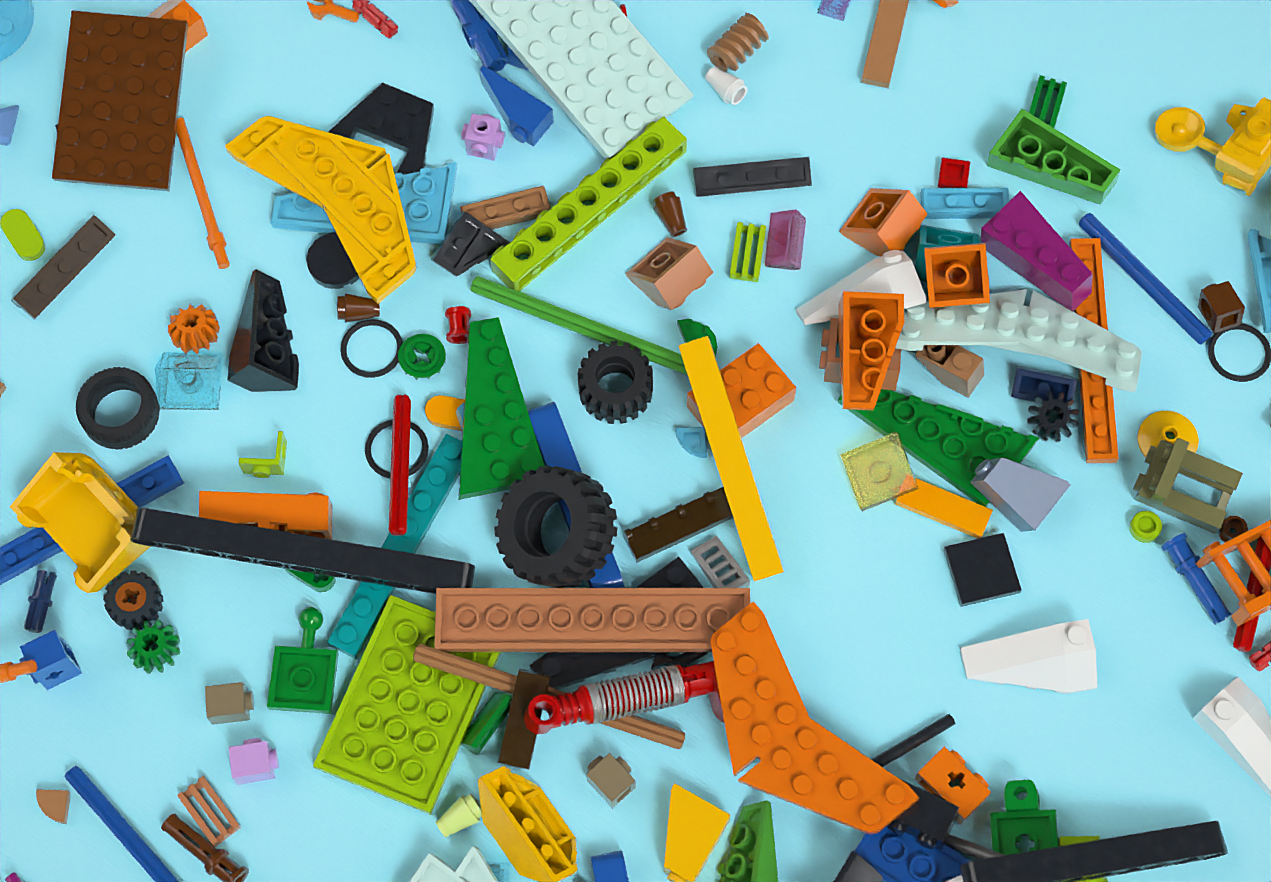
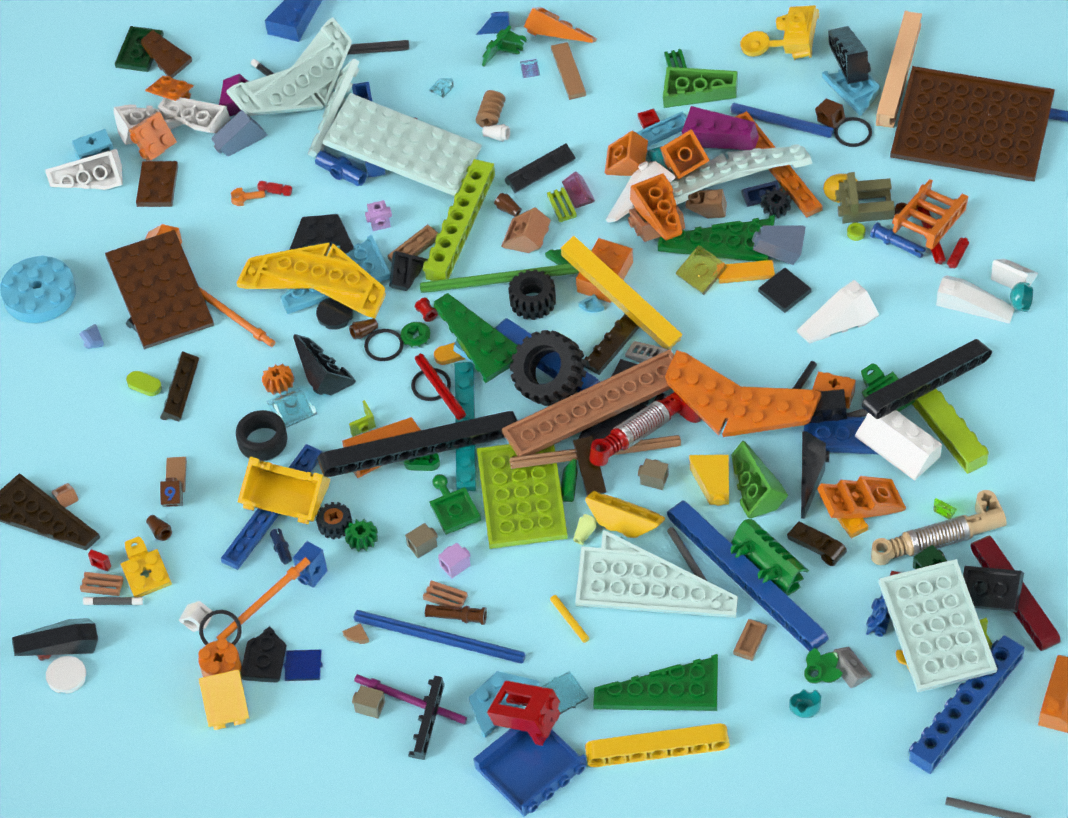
camera: 25 degrees left, 15 degrees down
(522, 113) = (395, 194): blue slope -> none

